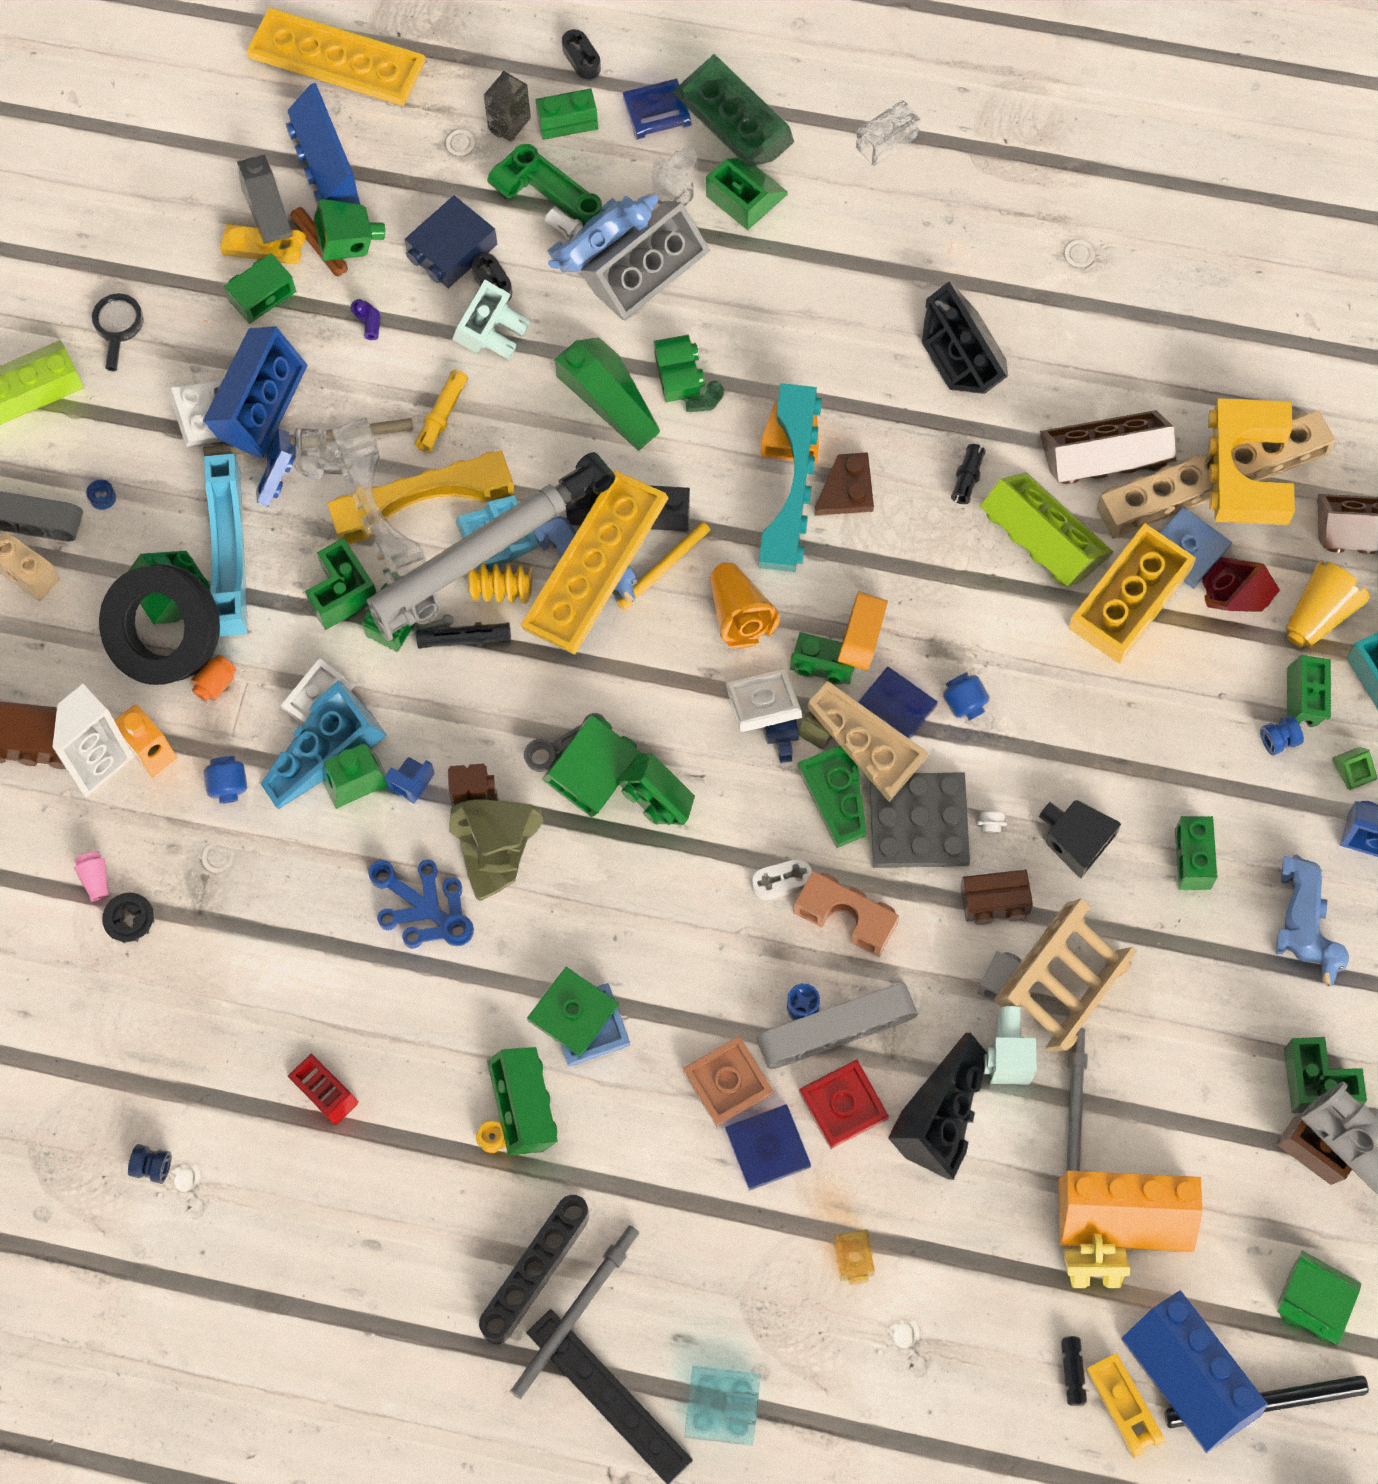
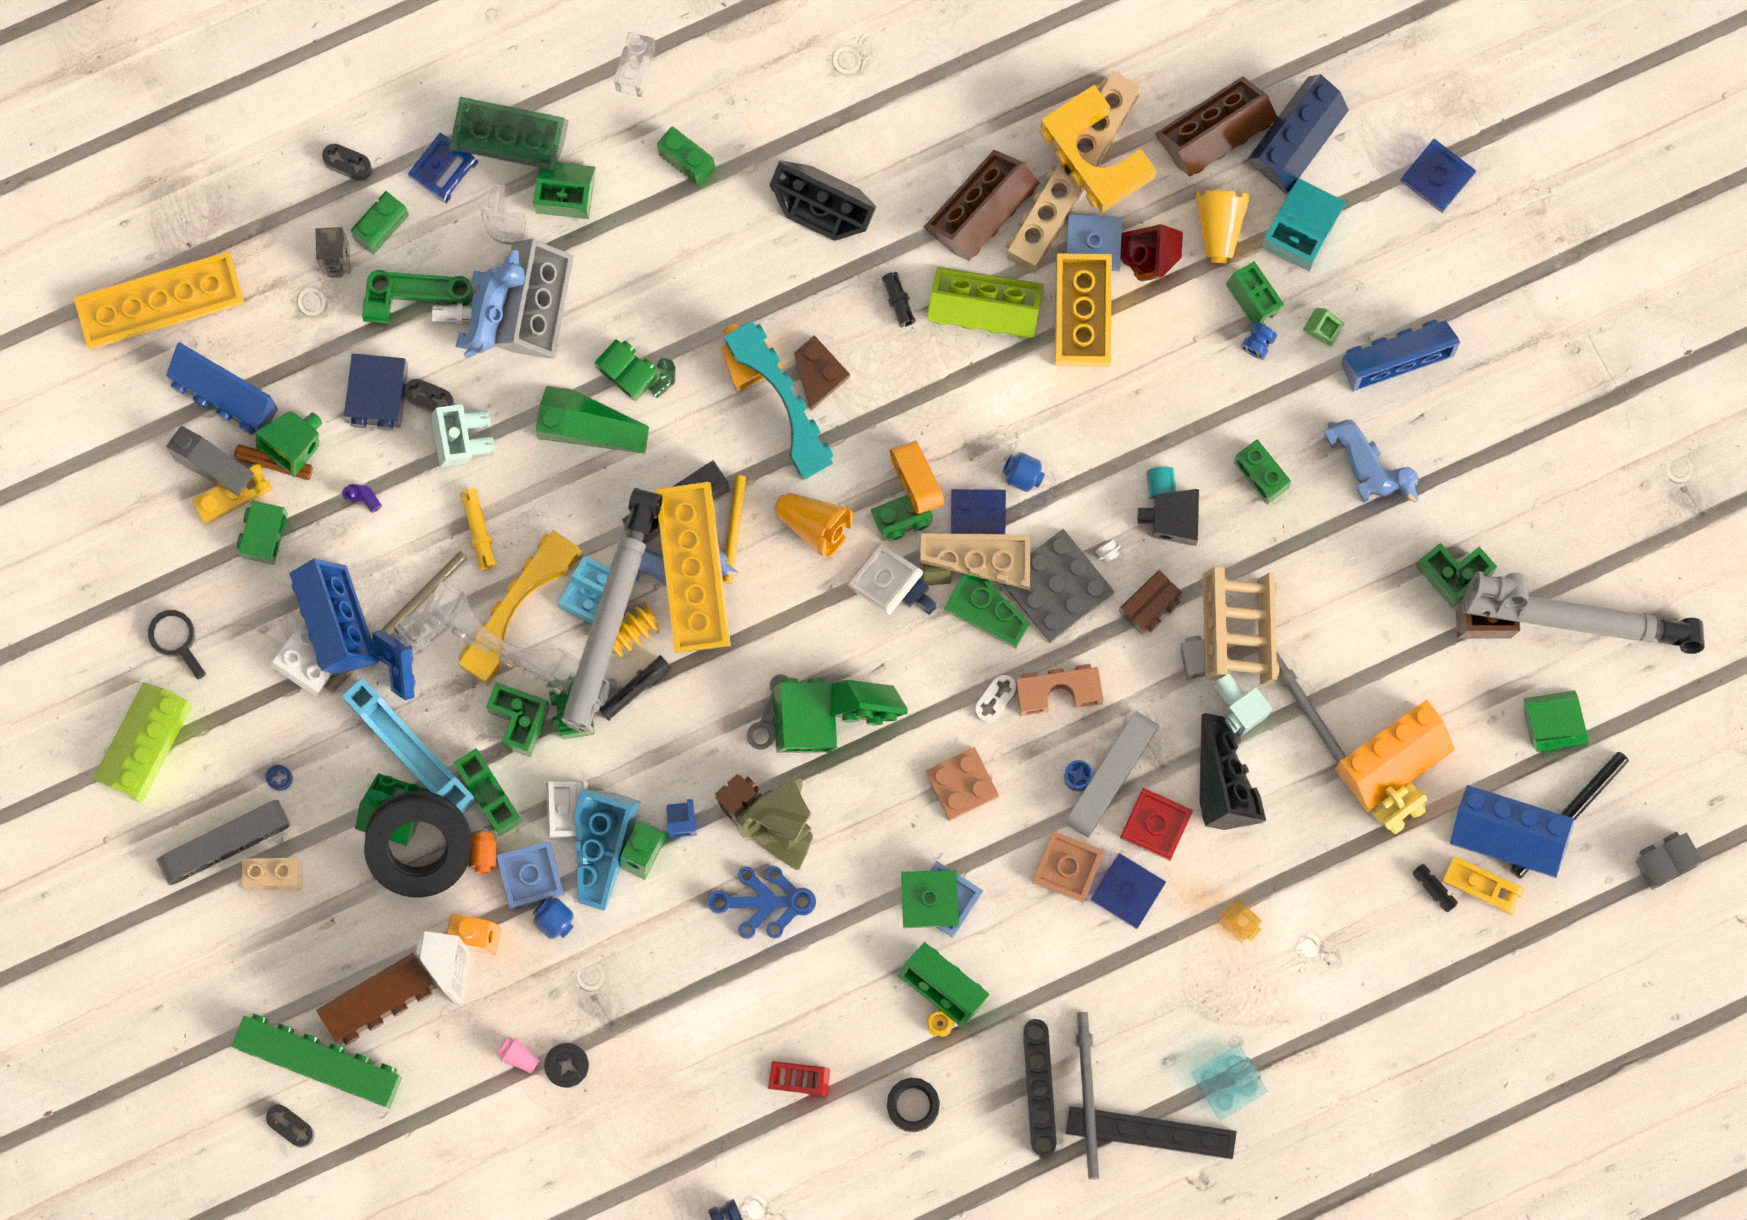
camera: 35 degrees left, 10 degrees up
(238, 728) = (530, 874): none -> medium blue plate
(264, 614) = (488, 792): none -> green arch
(397, 1168) = (915, 1083): none -> black tyre
(689, 933) = (962, 784): none -> nougat plate
(872, 232) = (685, 155): none -> green brick
(1092, 793) = (1160, 481): none -> teal brick

